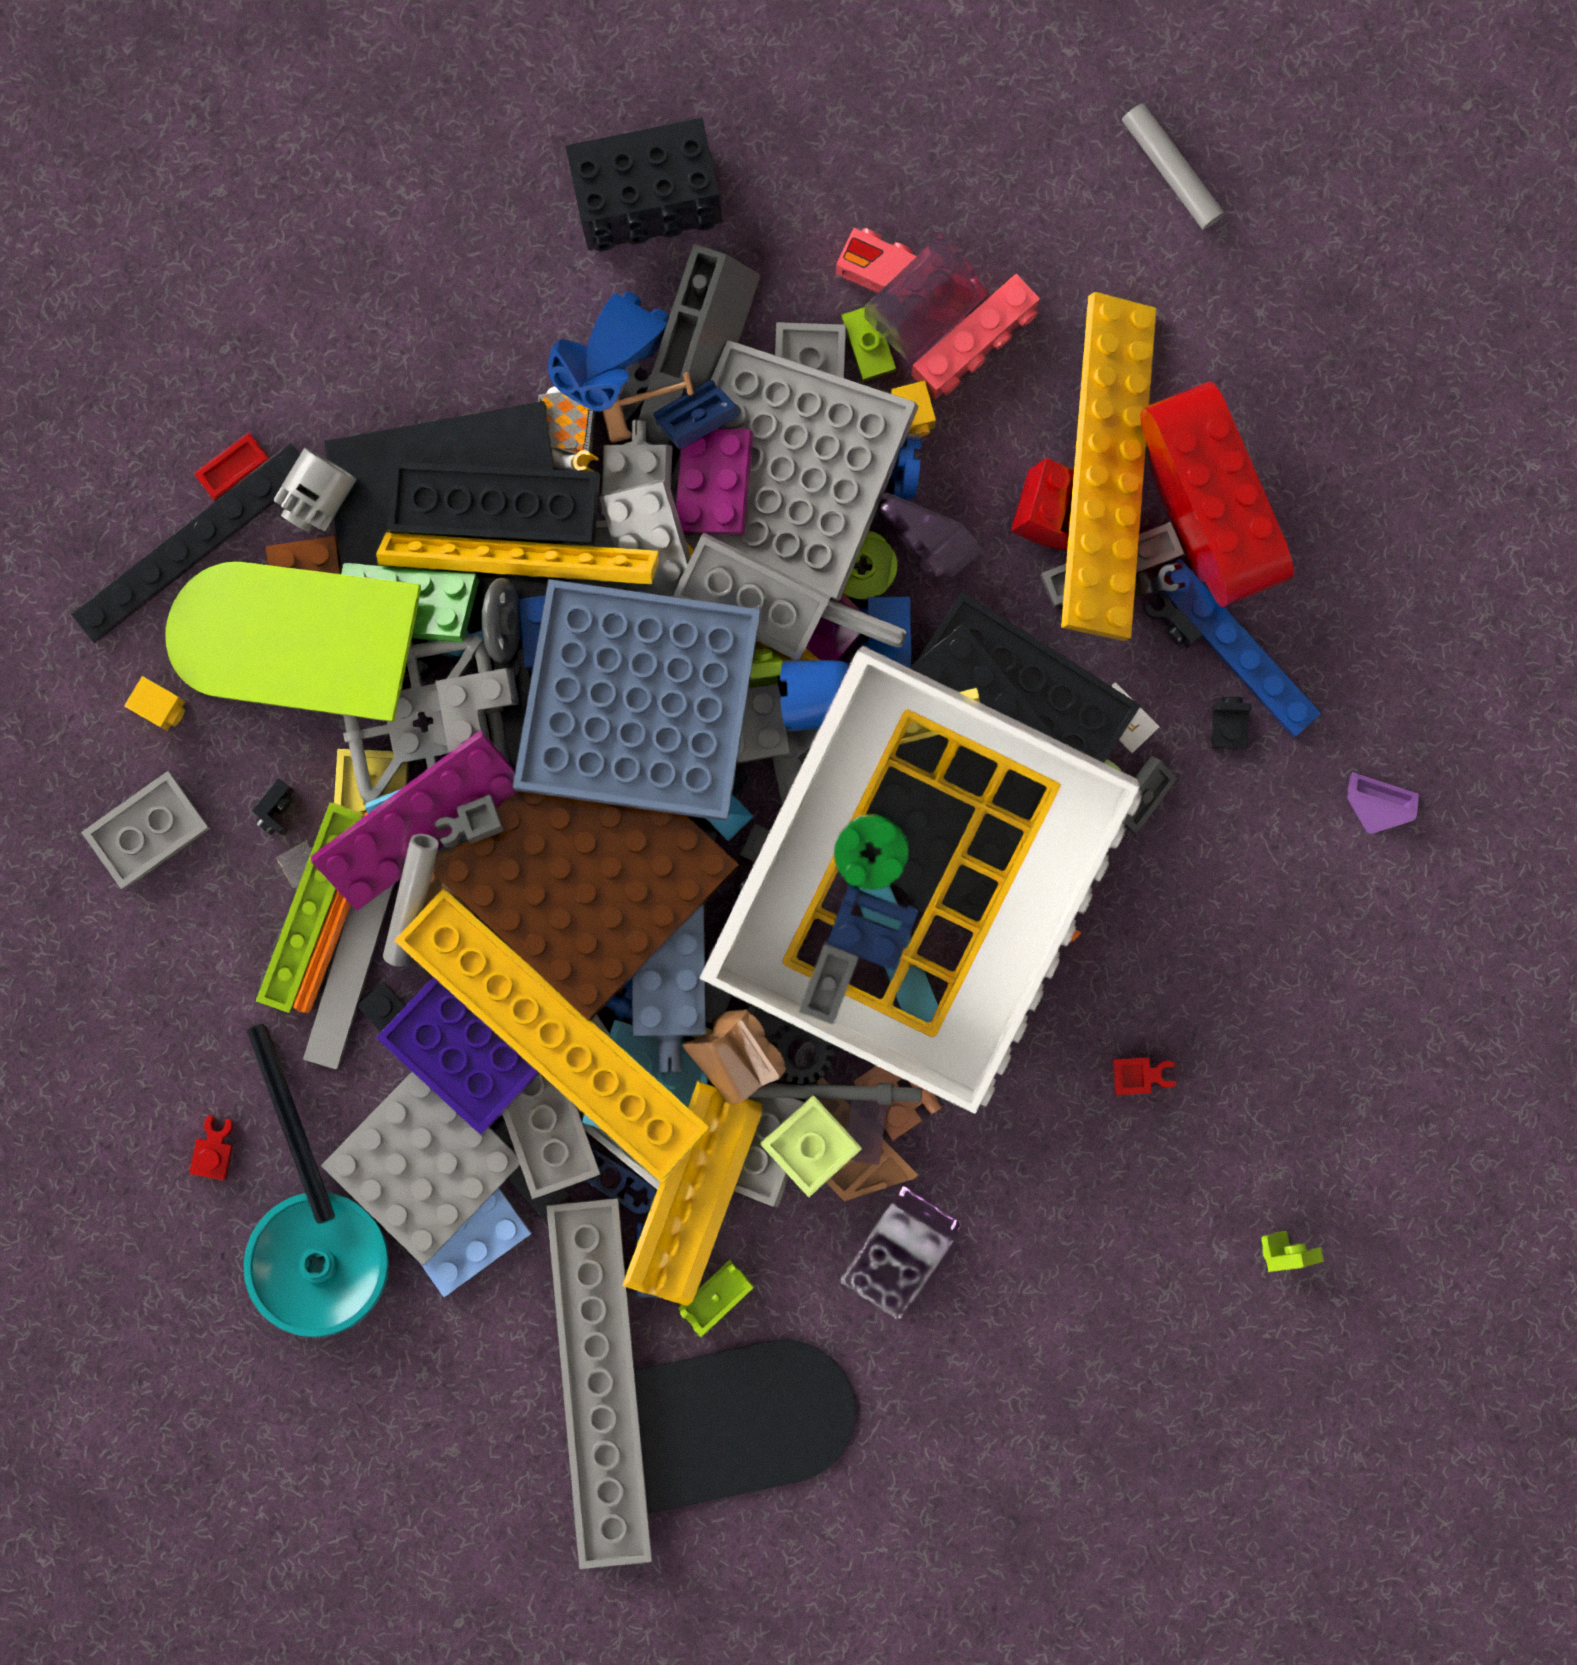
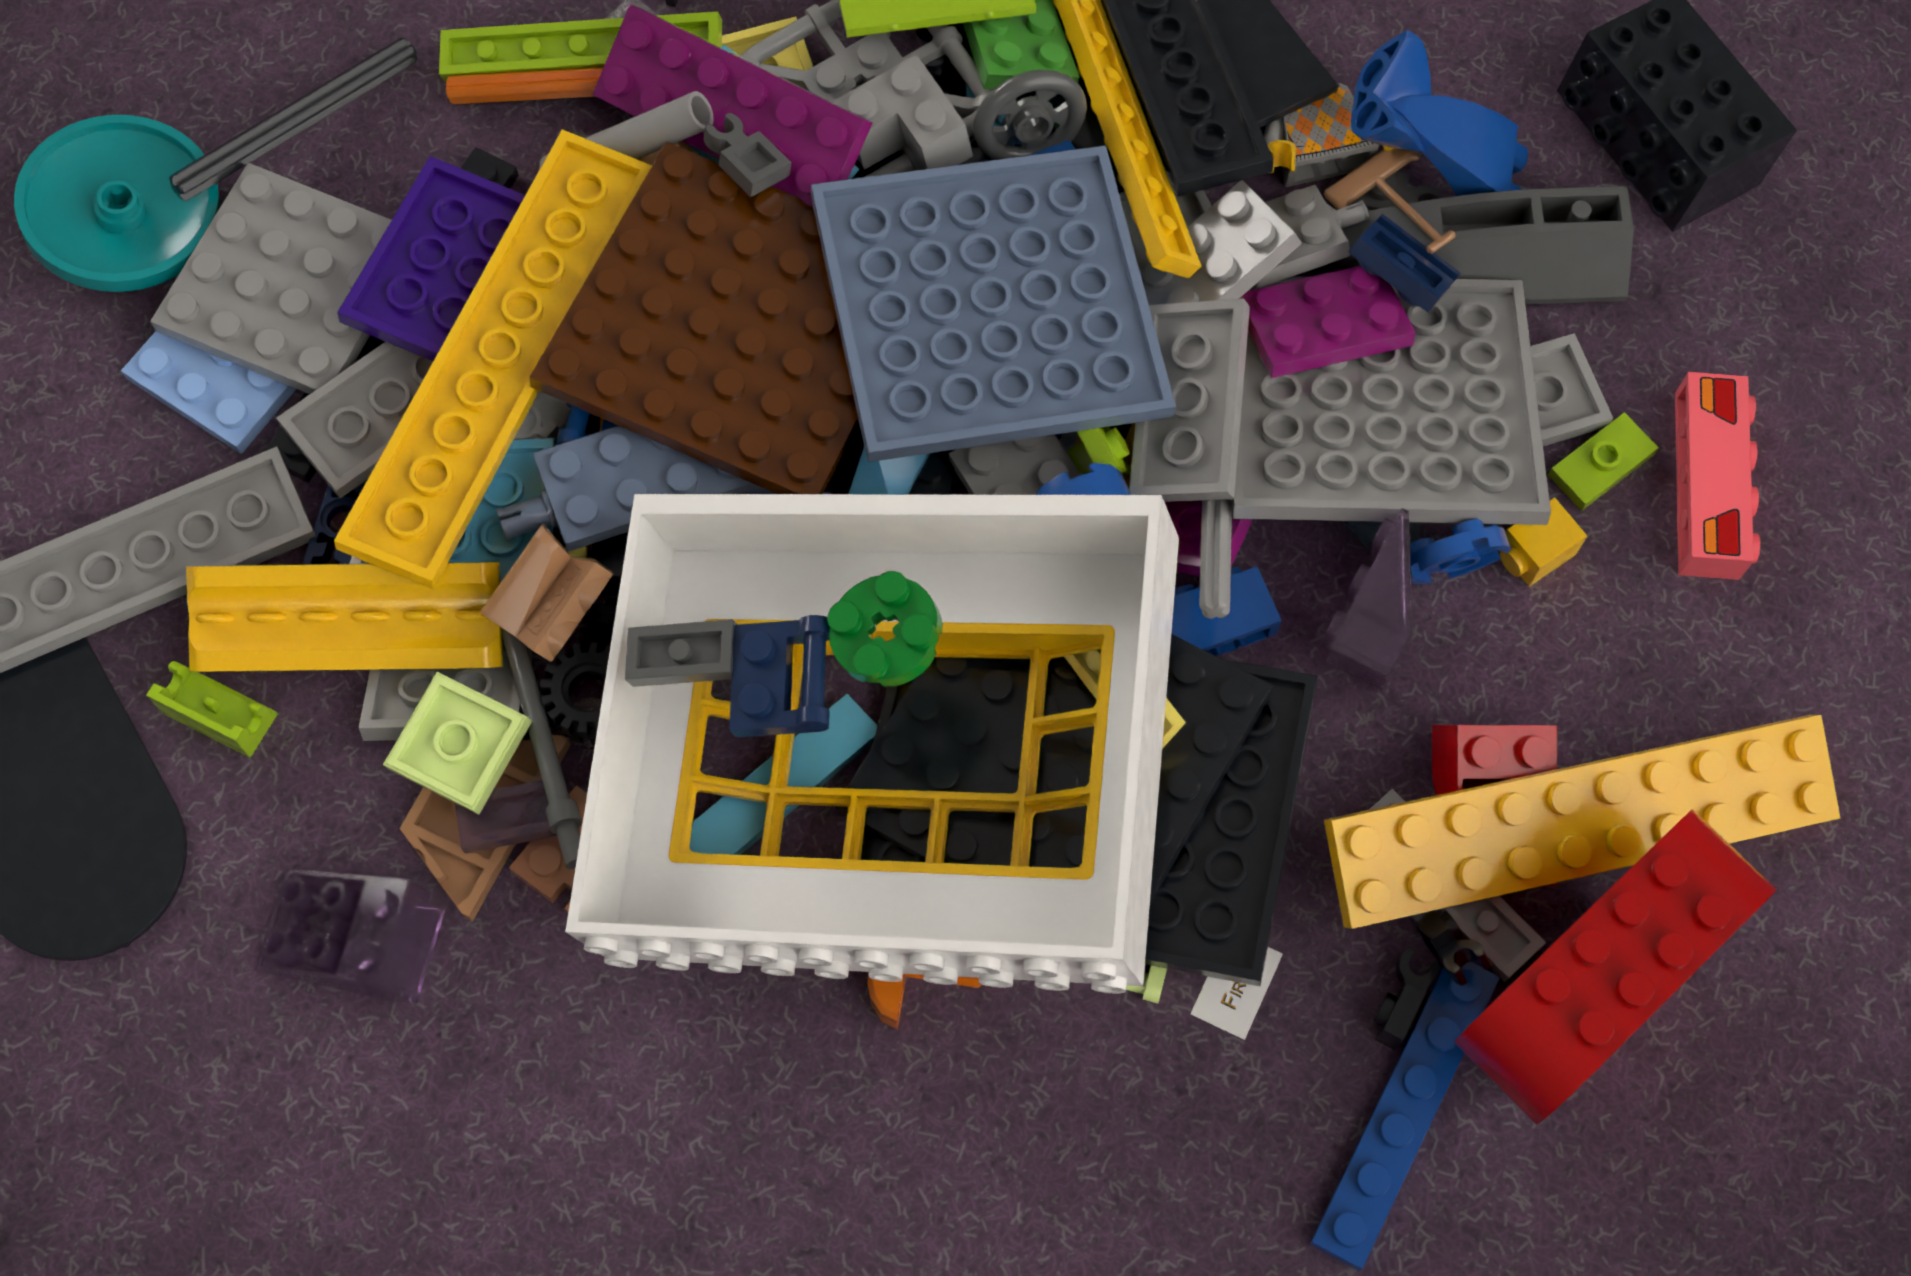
camera: 65 degrees right, 15 degrees down
(212, 1156) = (233, 53): red plate -> none
(346, 981) = (493, 127): light grey tile -> none
(883, 571) = (1299, 581): lime plate -> none
(925, 300) = (1698, 489): slope -> none
(976, 336) = (1680, 587): coral brick -> none
(1136, 1076) = (715, 1183): red plate -> none
(1154, 783) = (1135, 1045): dark grey plate -> none
(1230, 723) = (1290, 1138): black bracket -> none

